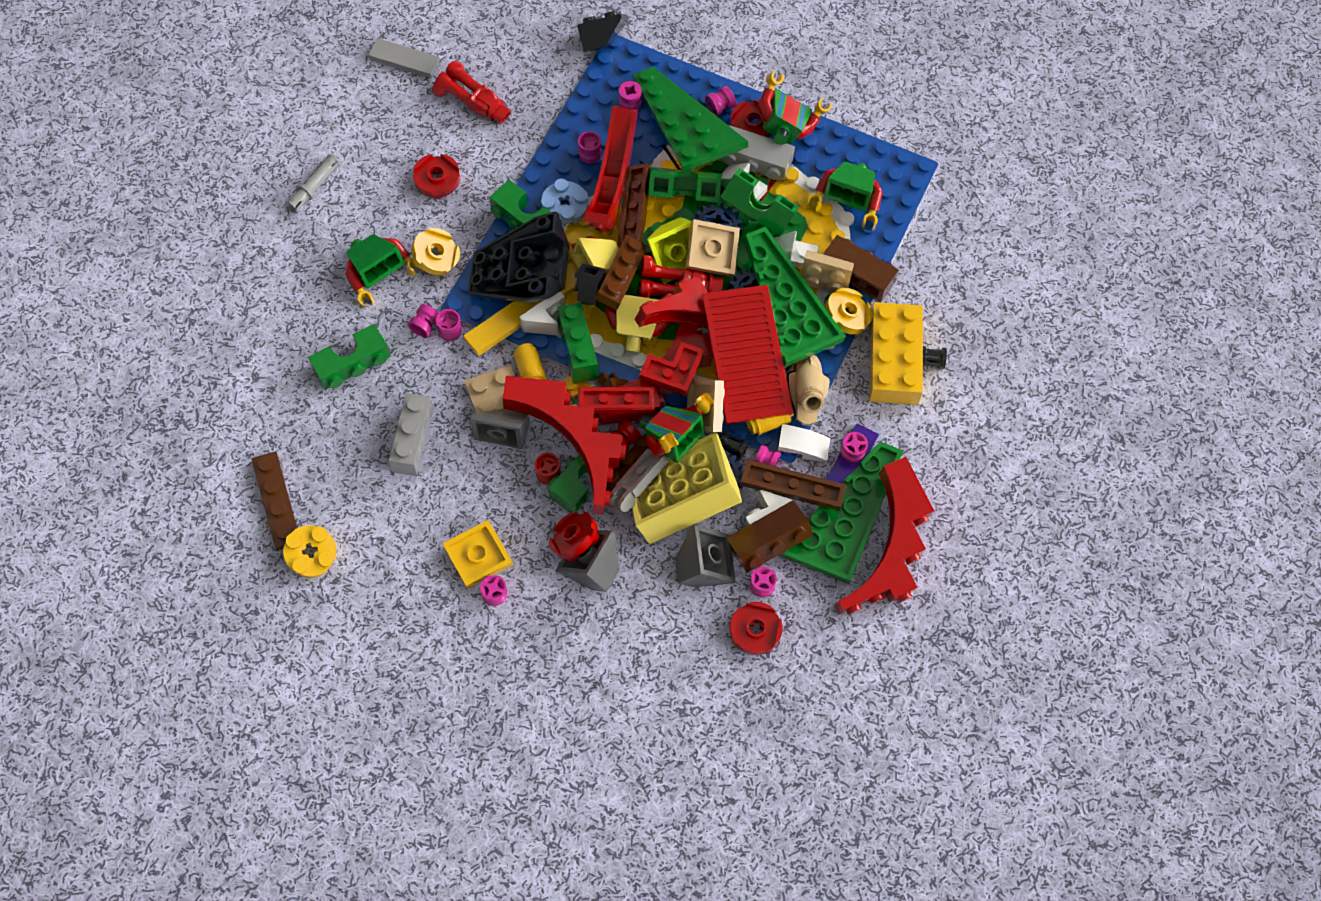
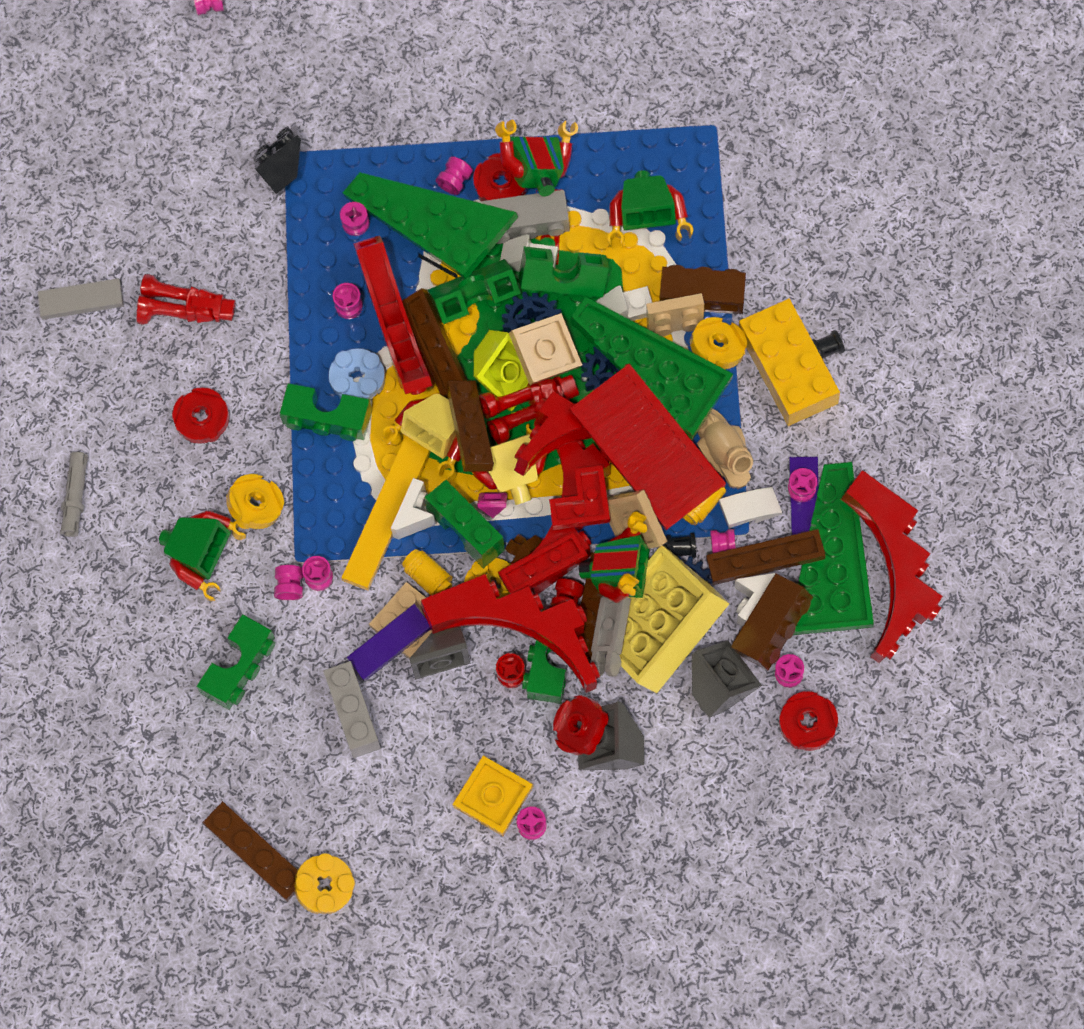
camera: 20 degrees left, 5 degrees up
(468, 400) = (389, 642): none -> dark purple tile
(523, 263) = (358, 469): black wedge -> none
(588, 283) = (445, 456): black brick -> none
(607, 340) = (492, 503): none -> dark pink slope

